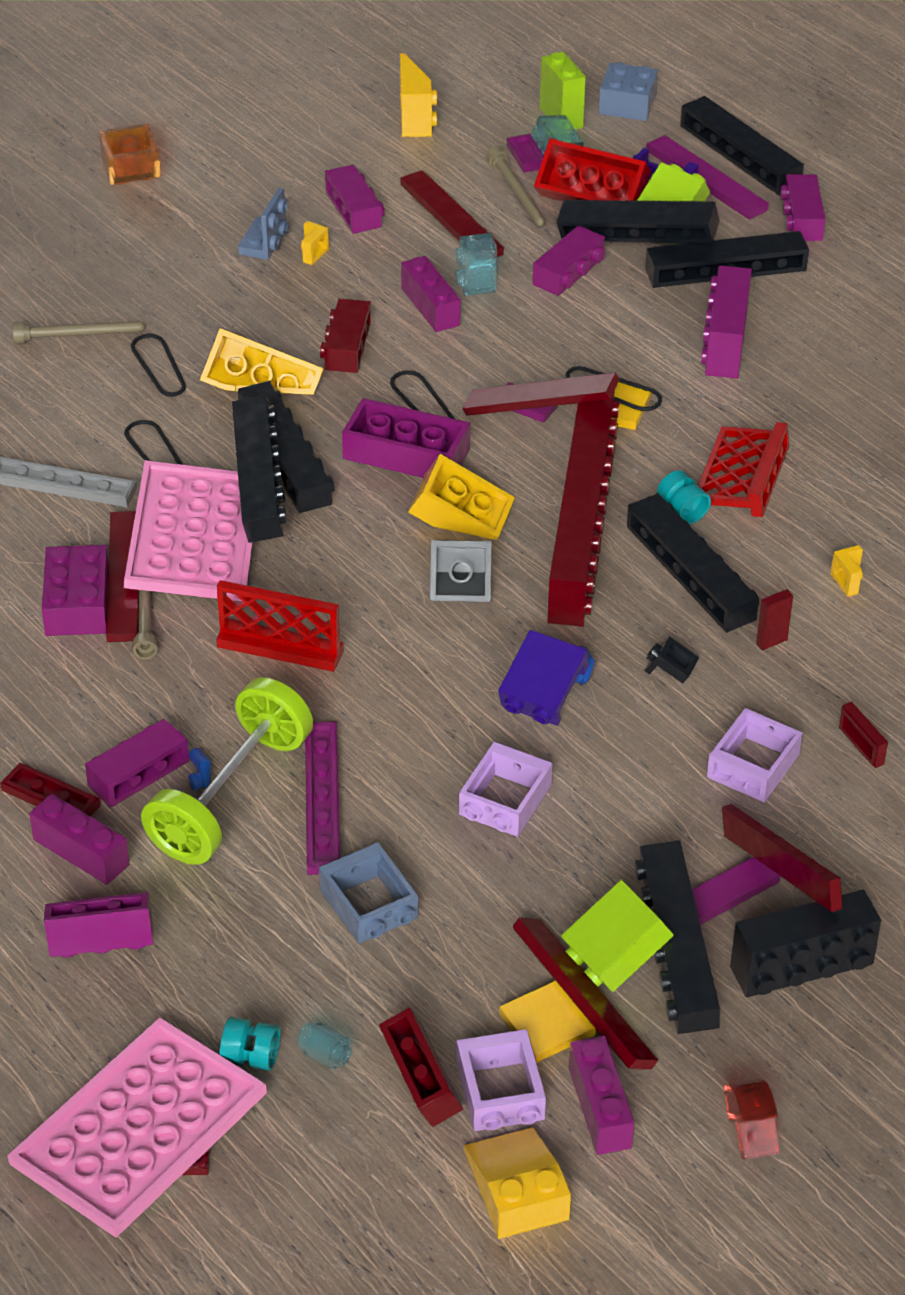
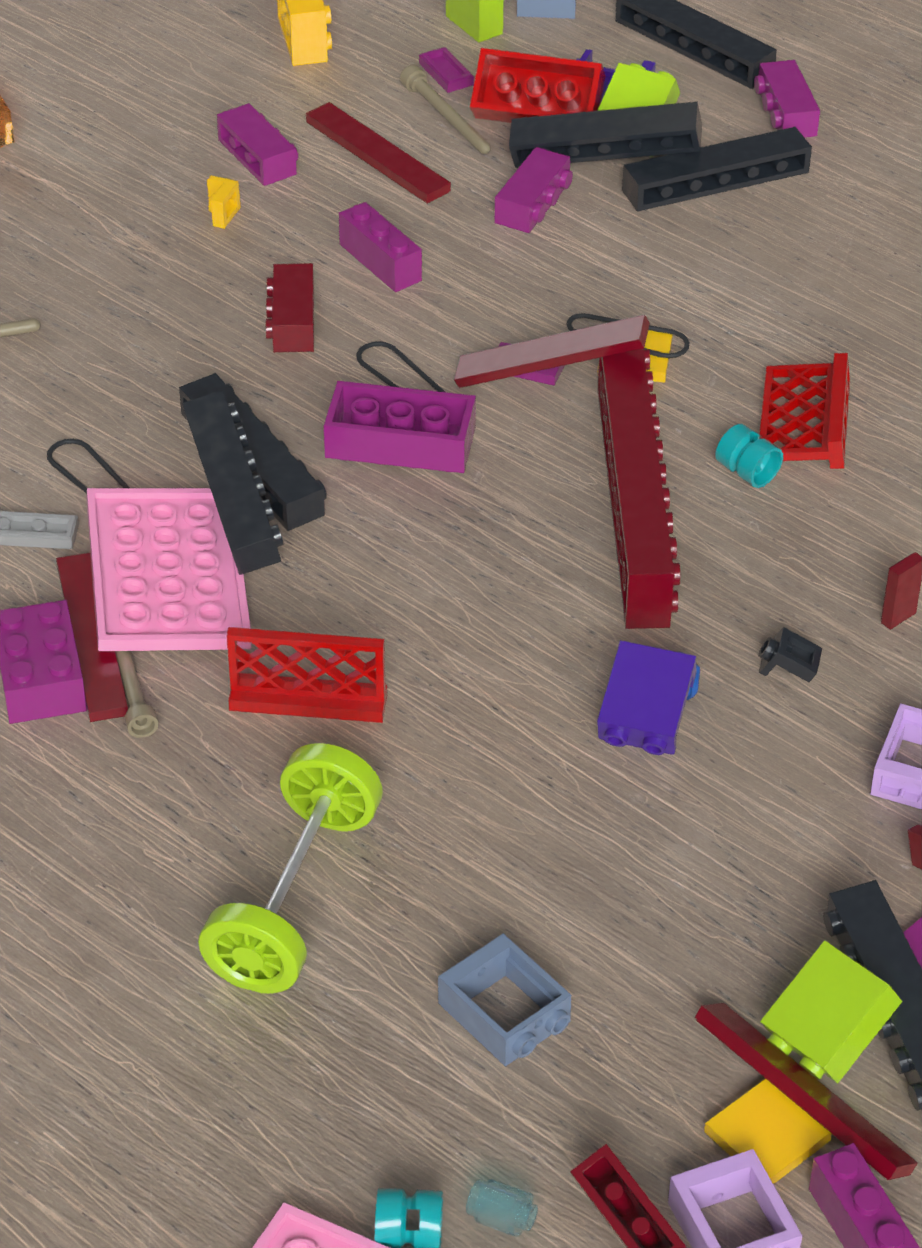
camera: 10 degrees left, 0 degrees up
(36, 786) = (67, 927): dark red tile -> none
(79, 839) = (122, 981): magenta brick -> none
(98, 924) = (176, 1091): magenta brick -> none
(137, 762) = (169, 872): magenta brick -> none
(149, 372) = (58, 379): black piece -> none
(203, 766) = (254, 864): blue arm -> none
(242, 363) = (177, 355): yellow wedge -> none
(267, 230) = (161, 195): sand blue bracket -> none
(322, 796) = (412, 887): magenta tile -> none
(460, 501) = (483, 492): yellow slope -> none
(460, 571) = (507, 578): slope -> none
(476, 264) = (428, 205): clear light blue brick -> none
(502, 762) = (625, 810): lavender window -> none
(556, 128) = (470, 38): clear light blue brick -> none
(693, 563) = (781, 533): black brick -> none
(718, 183) = (692, 88): magenta tile -> none
(726, 322) = (742, 241): magenta brick -> none

